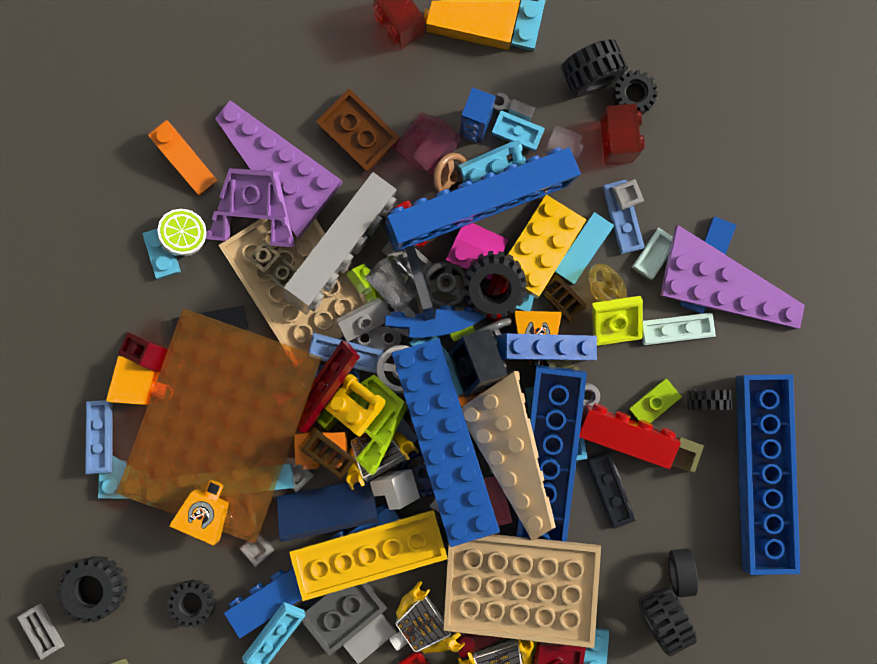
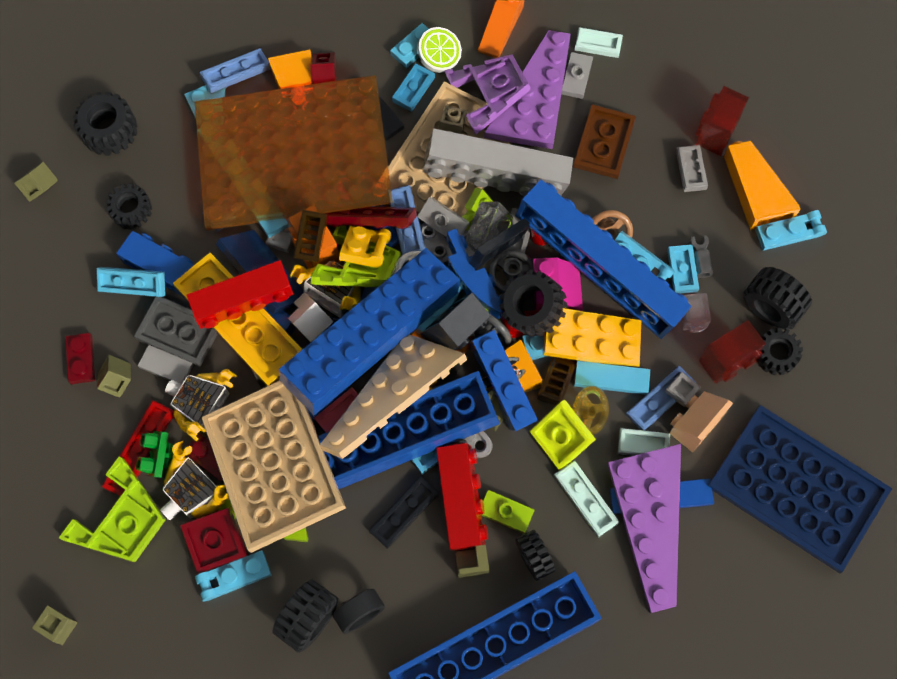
camera: 65 degrees right, 15 degrees down
(48, 625) = (55, 107): light grey tile -> none
(203, 514) = (209, 169): light orange torso -> none
(208, 276) = (413, 87): none -> dark azure plate
(251, 78) = (598, 42): none -> light aqua tile
(257, 551) = (200, 237): light grey tile -> none
(275, 117) = (577, 75): none -> light grey plate
(351, 545) = (240, 294): none -> red brick
(425, 67) = (691, 168): none -> light grey plate
(427, 142) = (627, 197): clear pink slope -> none
(476, 115) = (673, 220): blue brick -> none
(664, 196) = (699, 420): none -> light nougat slope
(759, 147) = (800, 489): none -> dark blue plate

